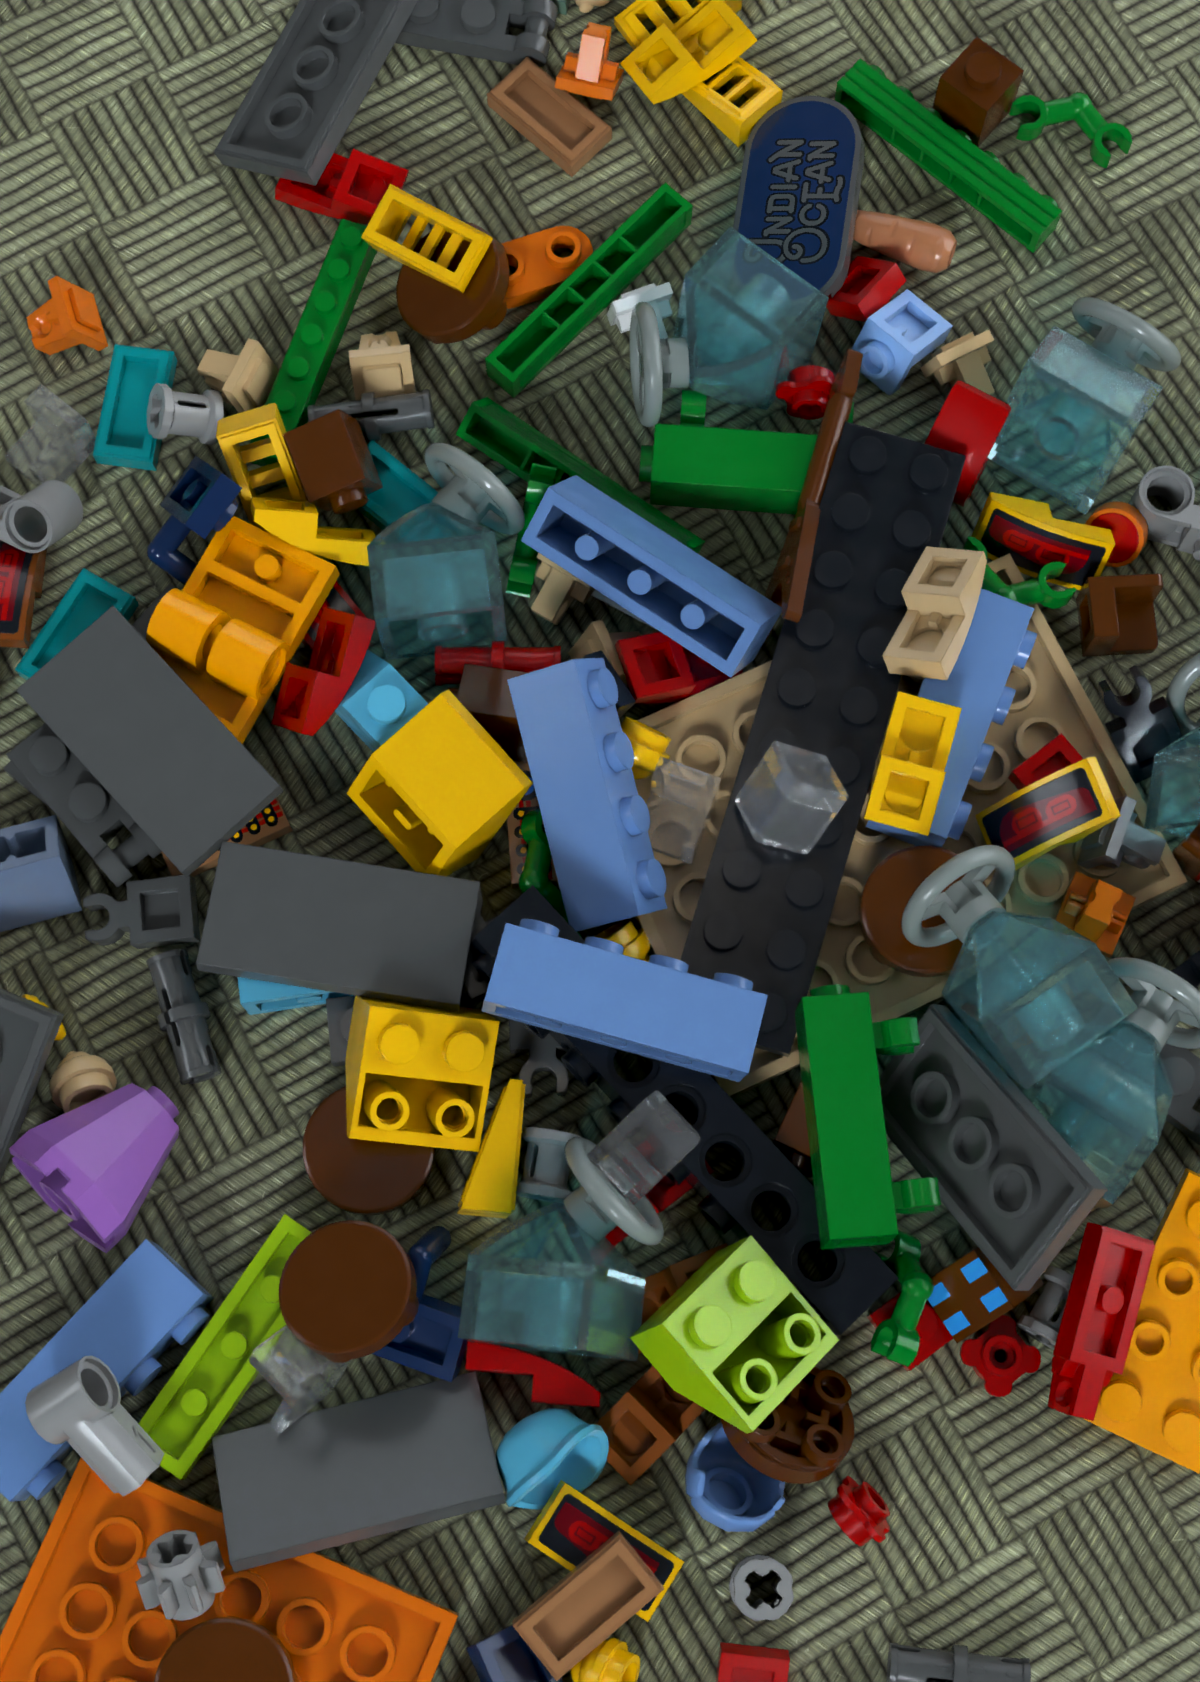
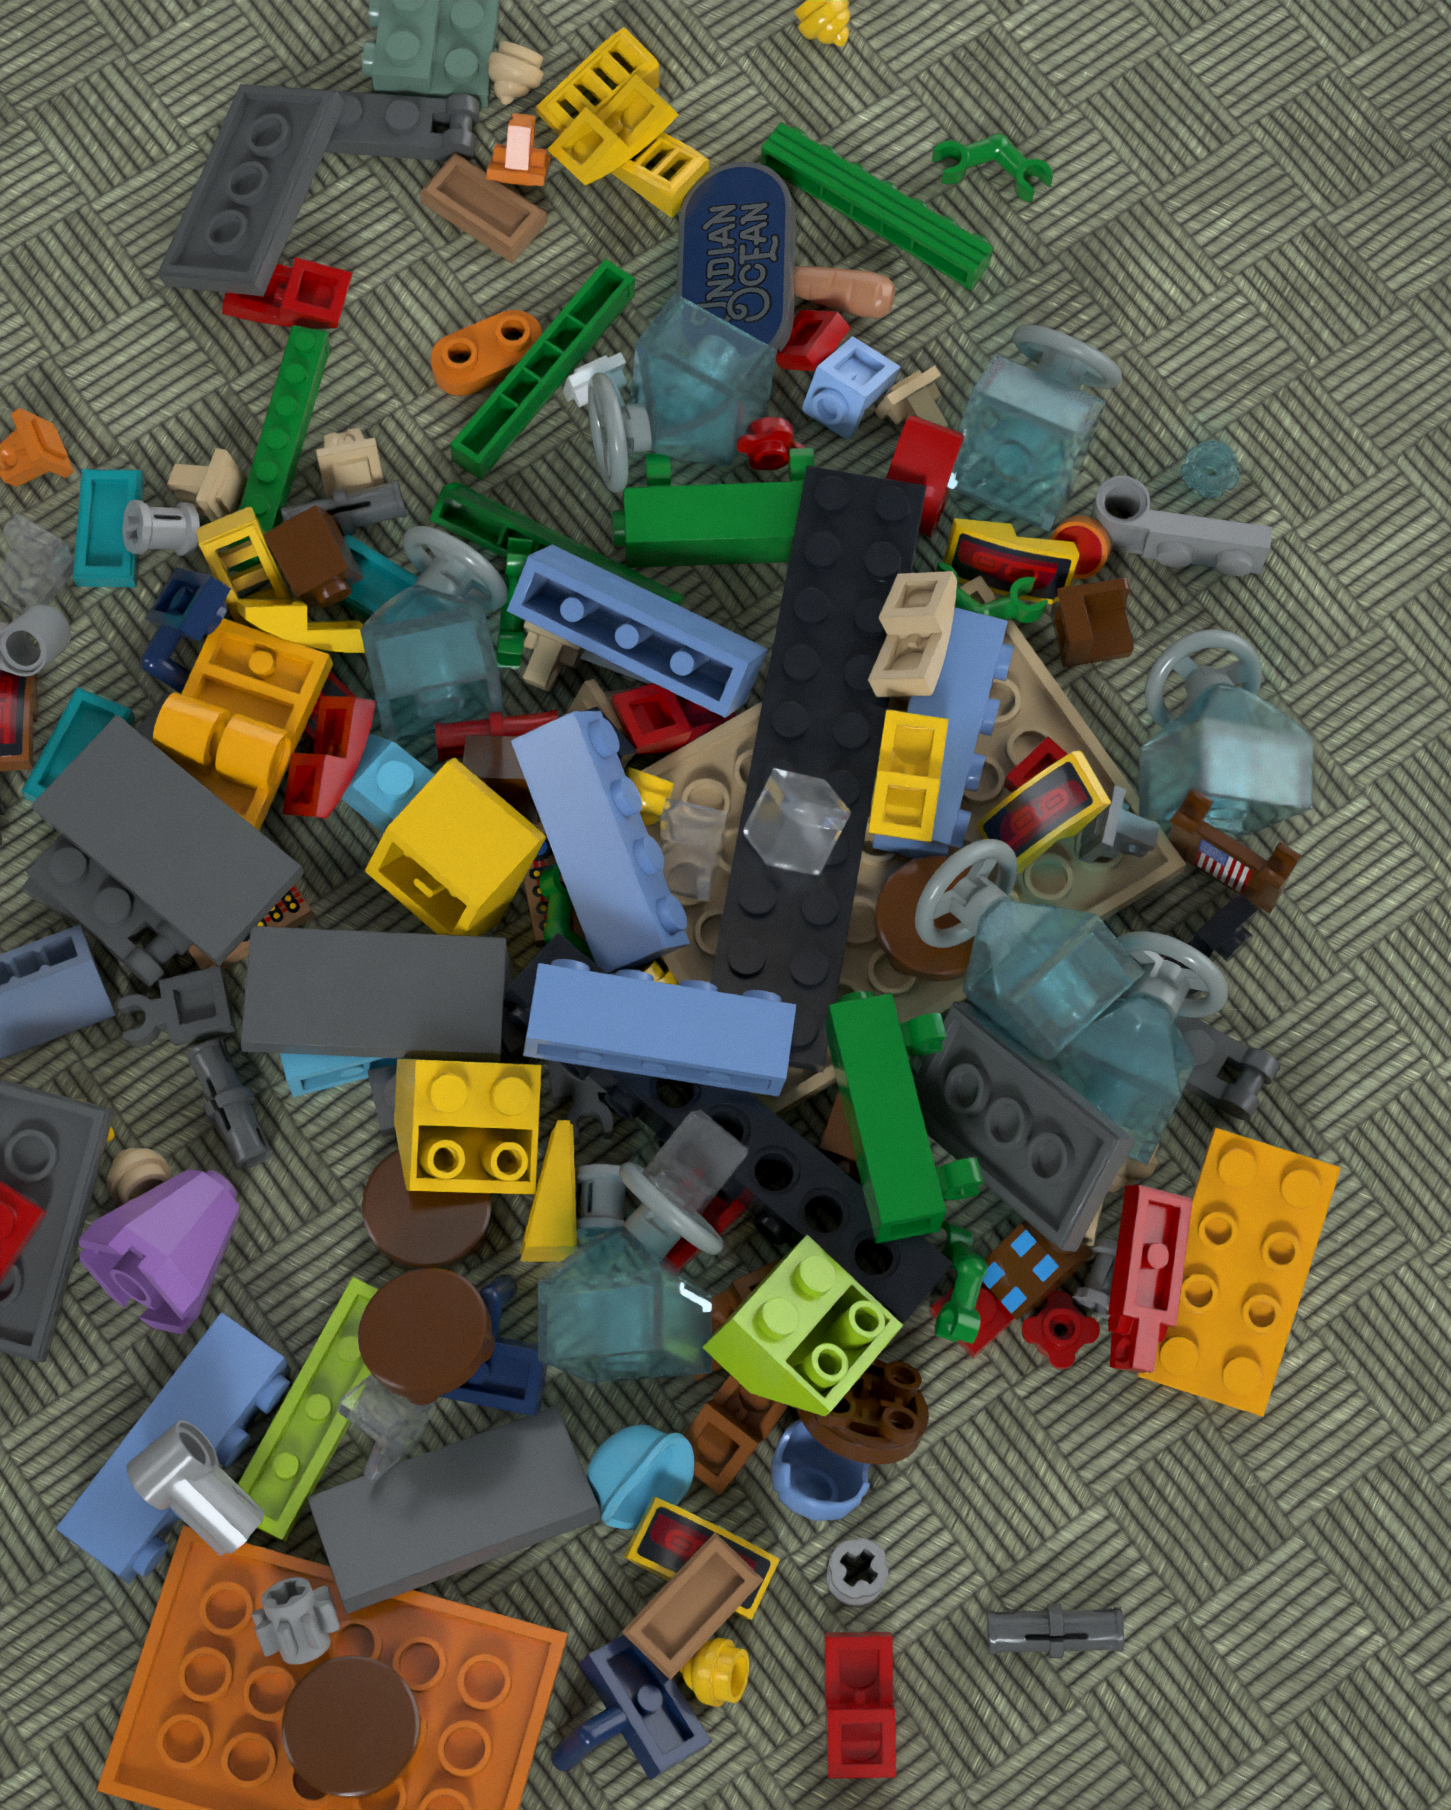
camera: 10 degrees left, 5 degrees down
(390, 221) = (341, 322): yellow slope -> none
(448, 314) = (410, 376): reddish brown tile -> none
(551, 1381) = (631, 1401): red slope -> none
(792, 569) = (772, 613): reddish brown piece -> none
(860, 1512) = (943, 1490): red plate -> none
(977, 90) = (897, 141): reddish brown brick -> none
(1095, 911) = (1103, 894): orange brick -> none
(1141, 725) = (1125, 723): black plate -> none

